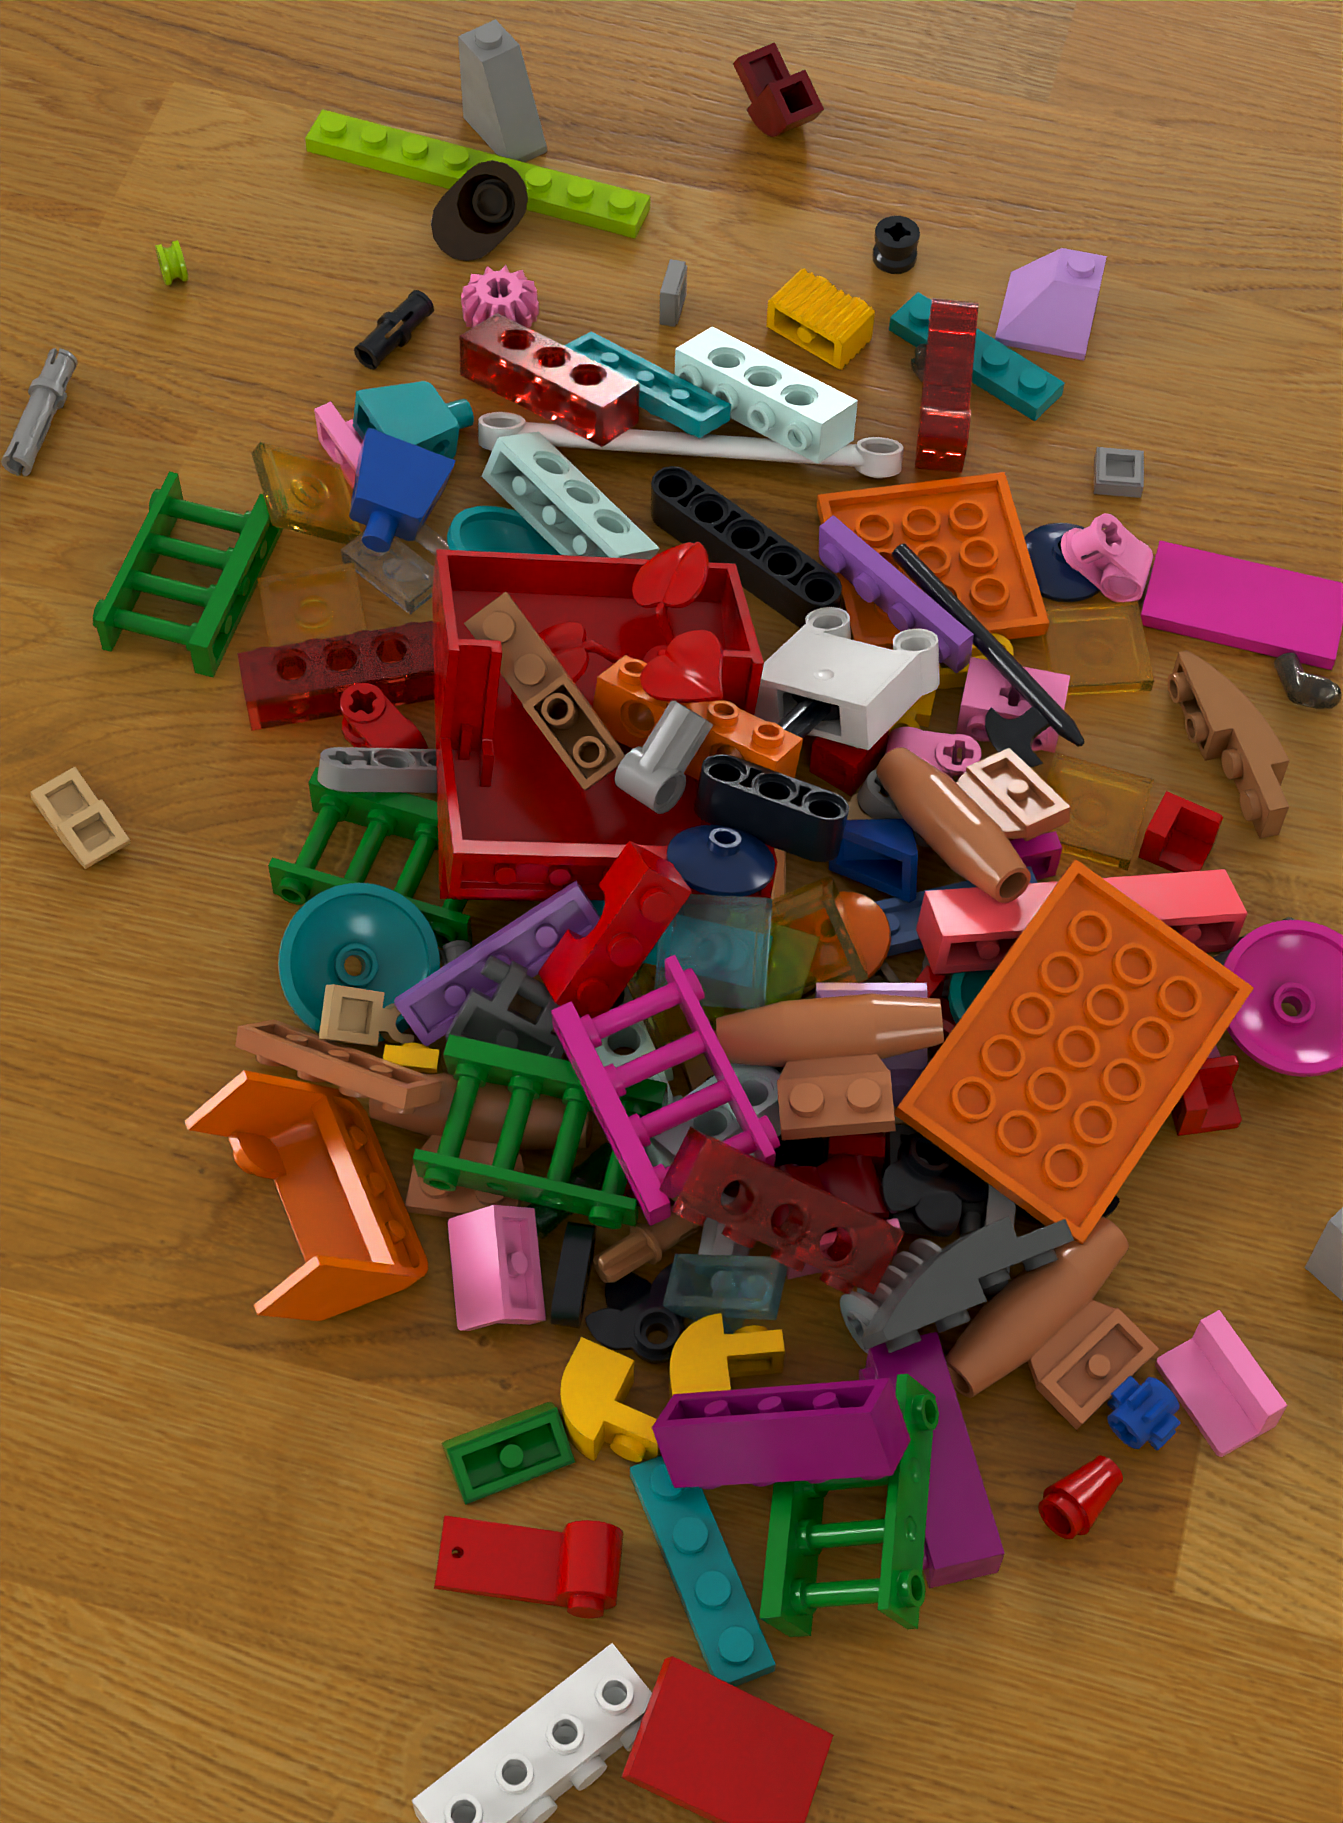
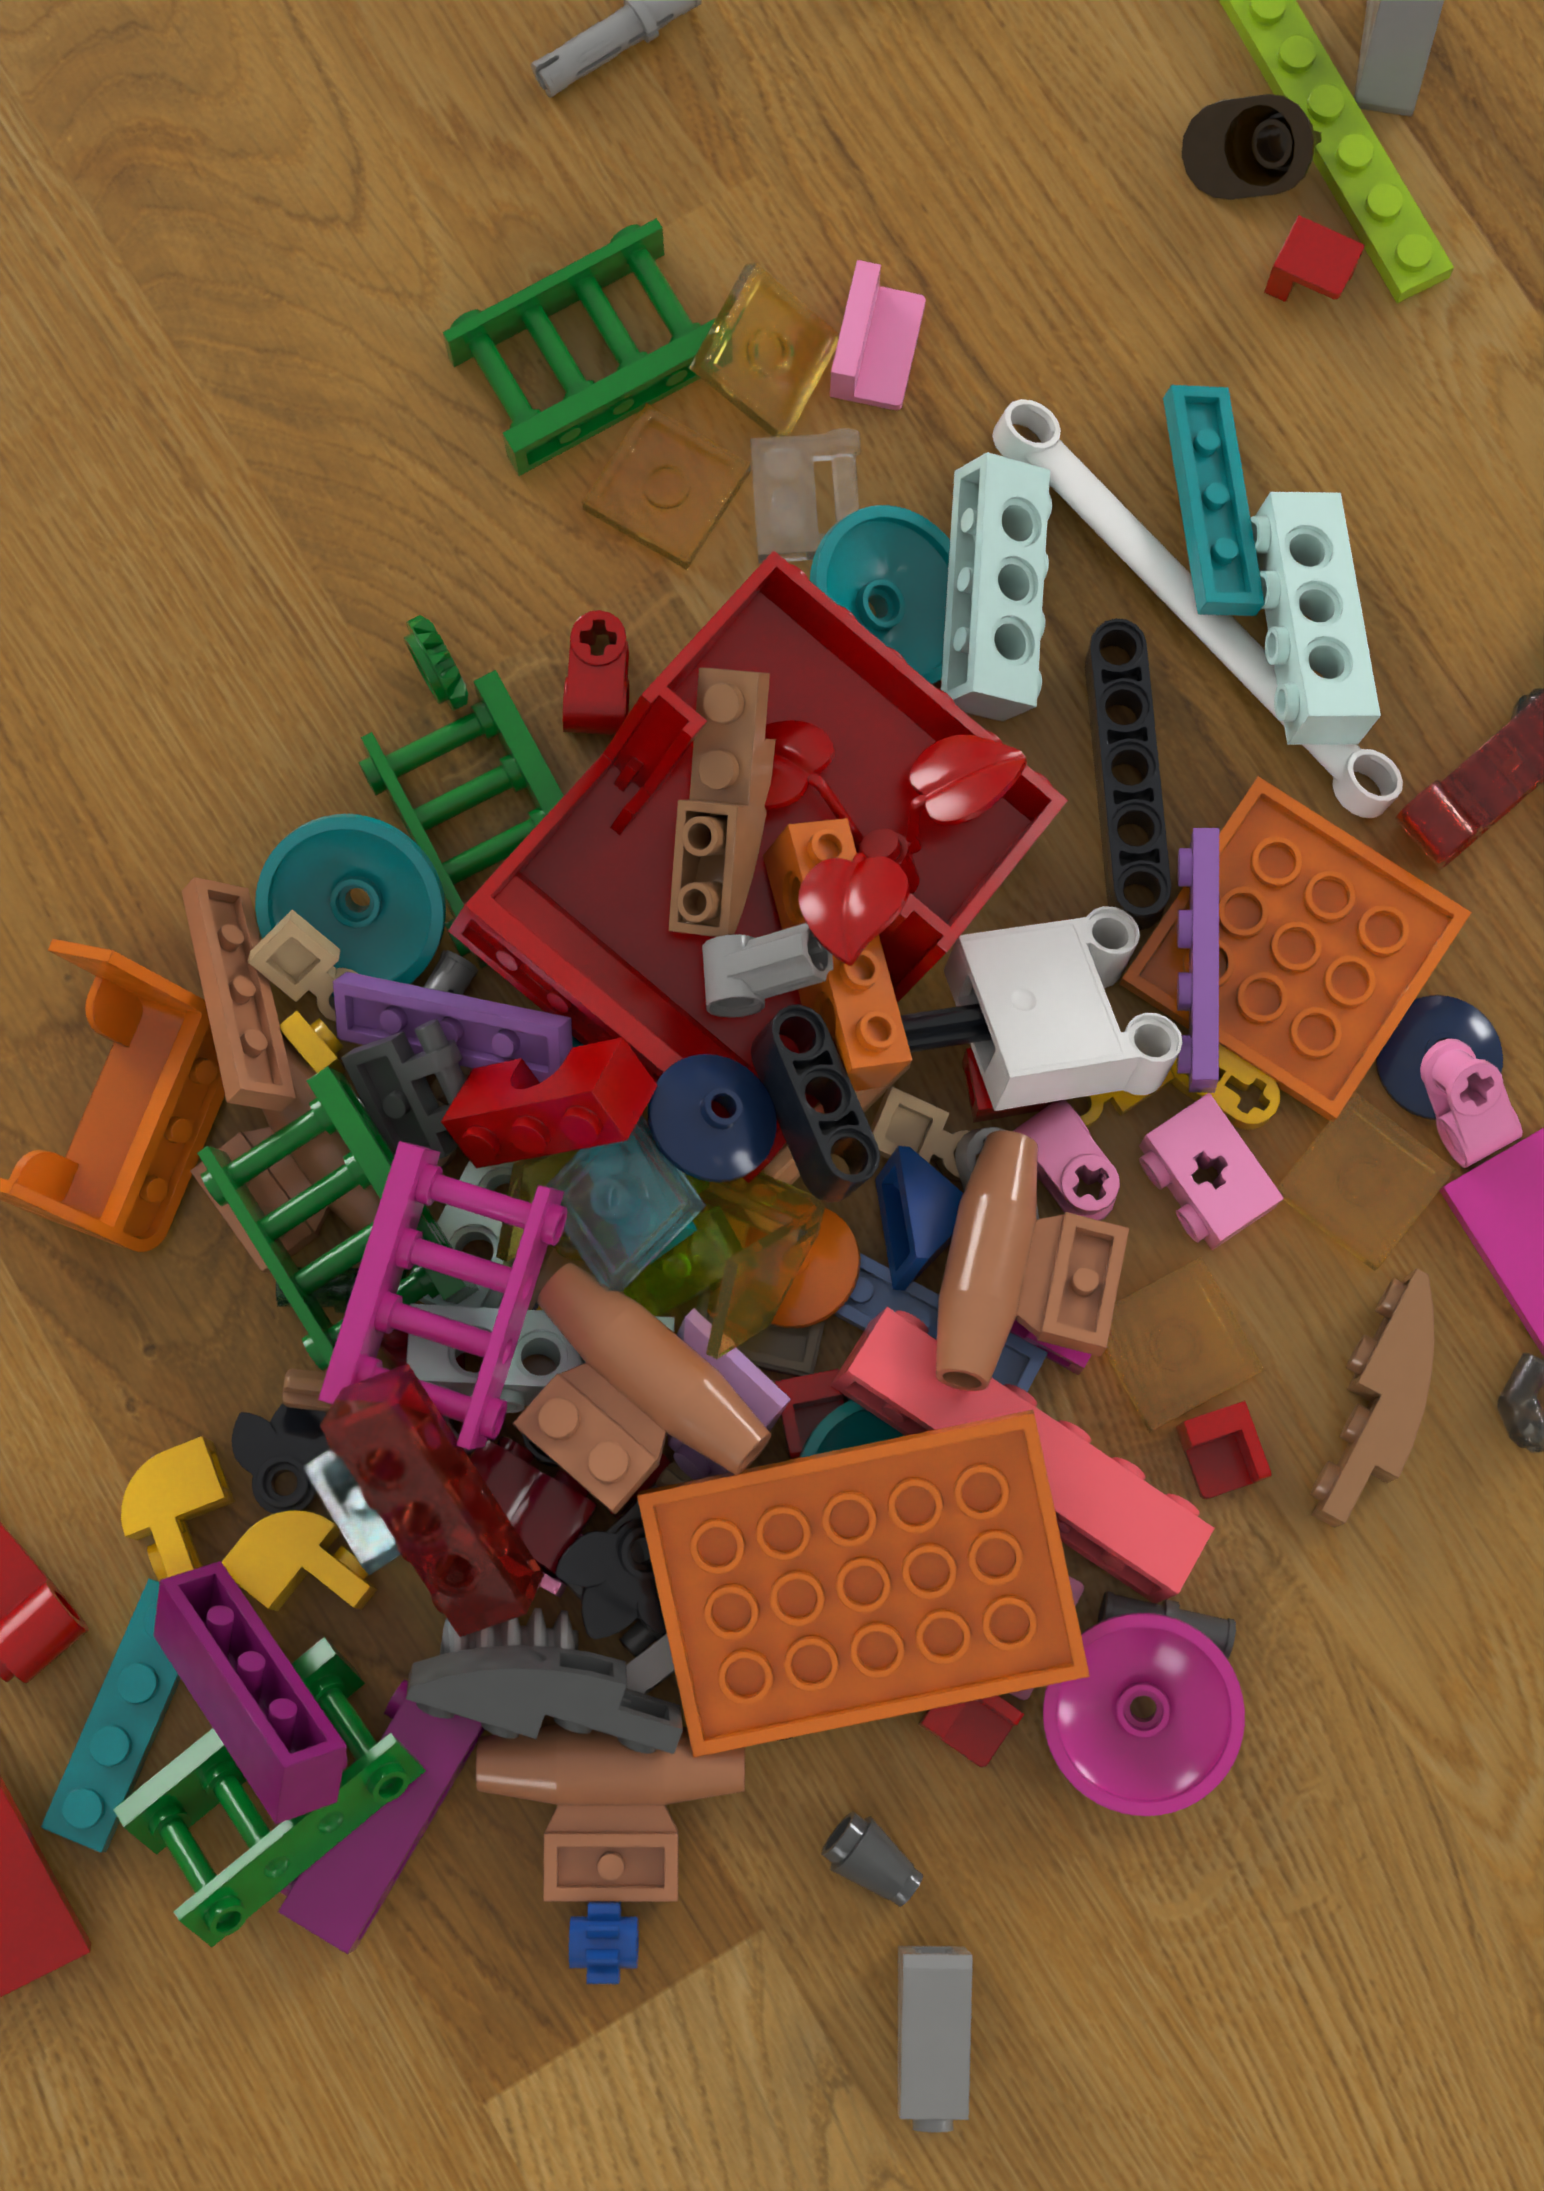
camera: 45 degrees right, 20 degrees up
(79, 818) = (265, 531): tan slope -> none
(272, 796) = (435, 663): none -> green gear
(378, 770) = (585, 736): light grey beam -> none
(391, 658) = (558, 517): clear red brick -> none
(395, 488) = (839, 426): blue torso -> none
(411, 312) = (1078, 210): black pin -> none
(413, 415) = (940, 356): teal torso -> none
(496, 1267) = (205, 1304): bright pink panel -> none
(502, 294) = (1174, 257): bright pink gear -> none
(508, 1452) = (71, 1465): green slope -> none
(549, 379) = (1110, 374): clear red brick -> none
(570, 235) = (1314, 259): none -> red panel
(573, 1274) = (259, 1369): black beam -> none
(673, 293) = (1354, 411): light grey tile -> none
(821, 318) = (1476, 570): yellow brick -> none
(1003, 733) = (1155, 1210): black piece -> none
(1078, 1499) = (482, 1958): red cone -> none
(1221, 1386) = (697, 1978): bright pink panel -> none
(1238, 1224) = (871, 1859): none -> dark grey cone

